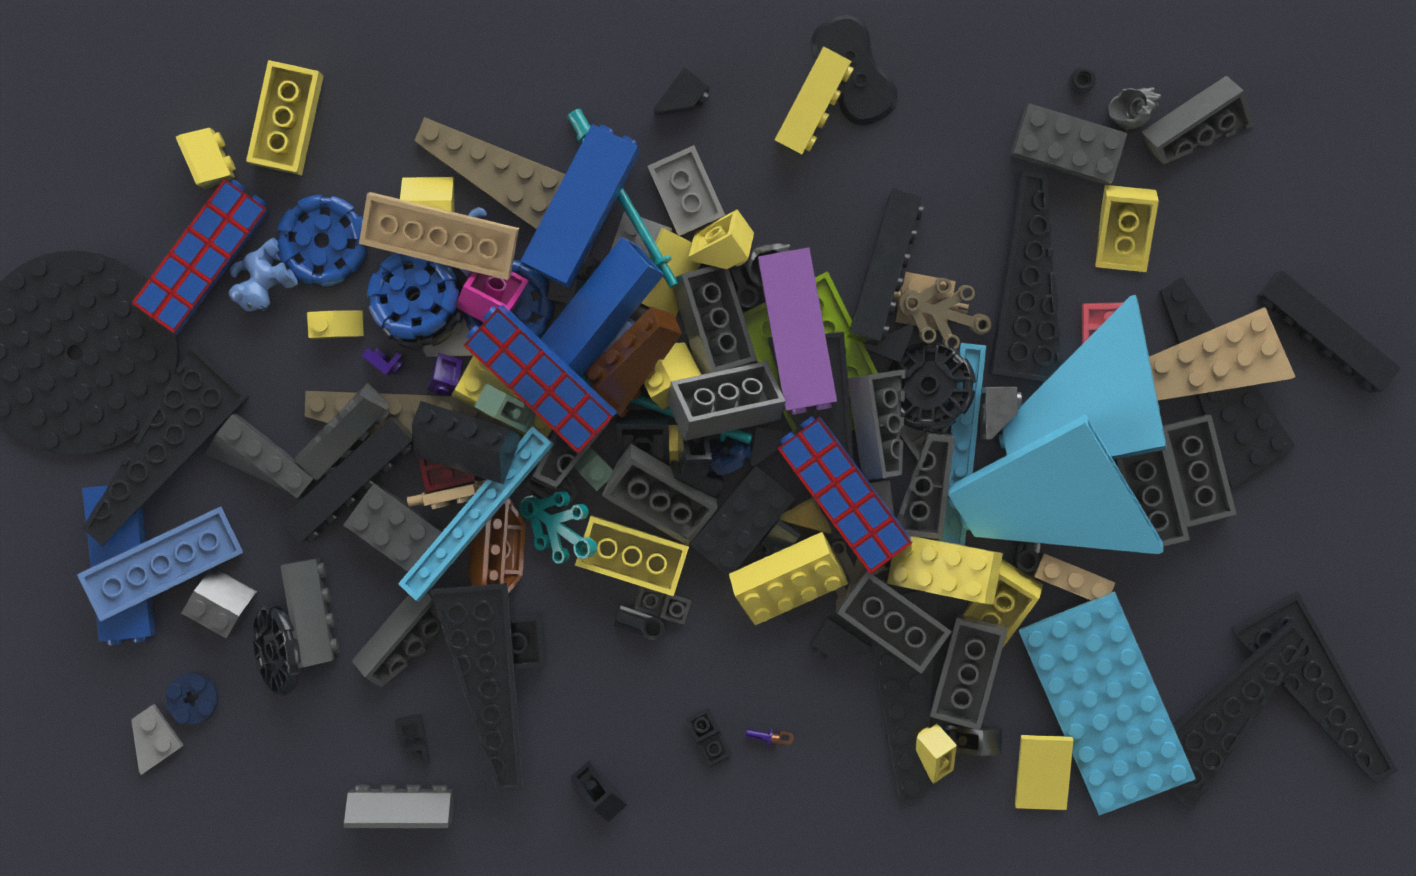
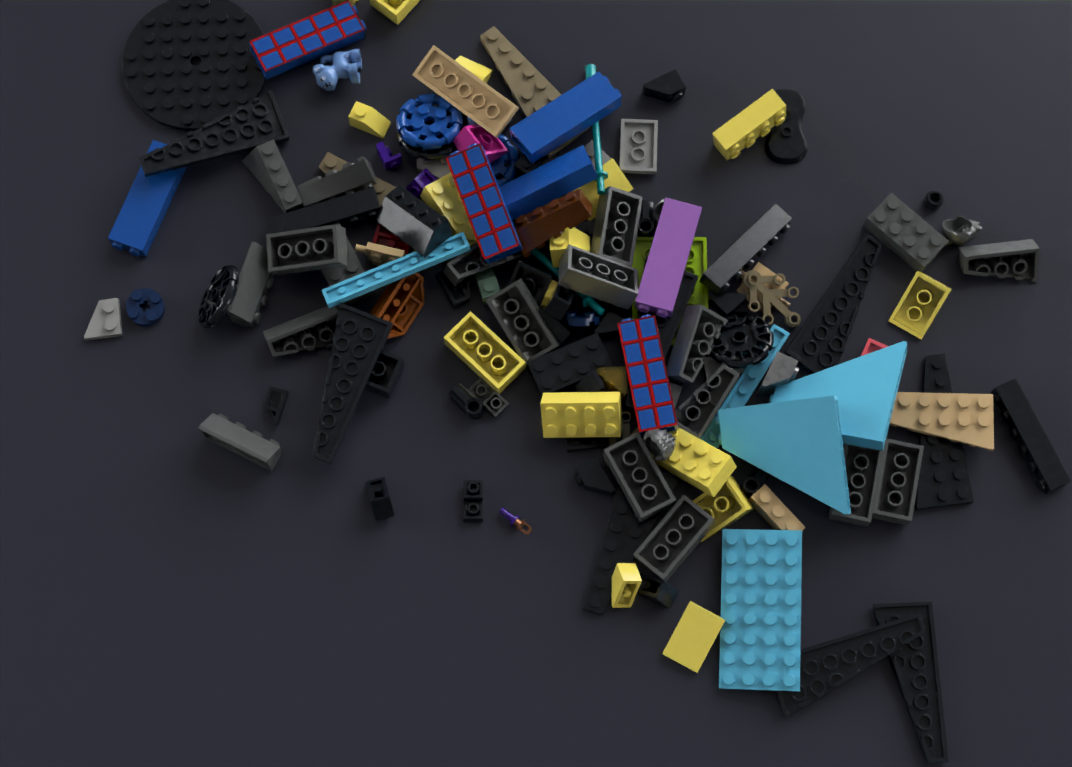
camera: 25 degrees right, 15 degrees down
(160, 563) = (175, 207): medium blue plate -> none
(219, 602) = (198, 254): flat silver slope -> none
(306, 240) = (388, 58): blue plate -> none
(354, 544) = (307, 249): none -> dark grey brick
(505, 408) = (453, 210): sand green slope -> none
(533, 509) = (434, 295): teal plant -> none
(723, 242) = (648, 185): light yellow slope -> none
(902, 575) = (659, 443): none -> dark grey hair

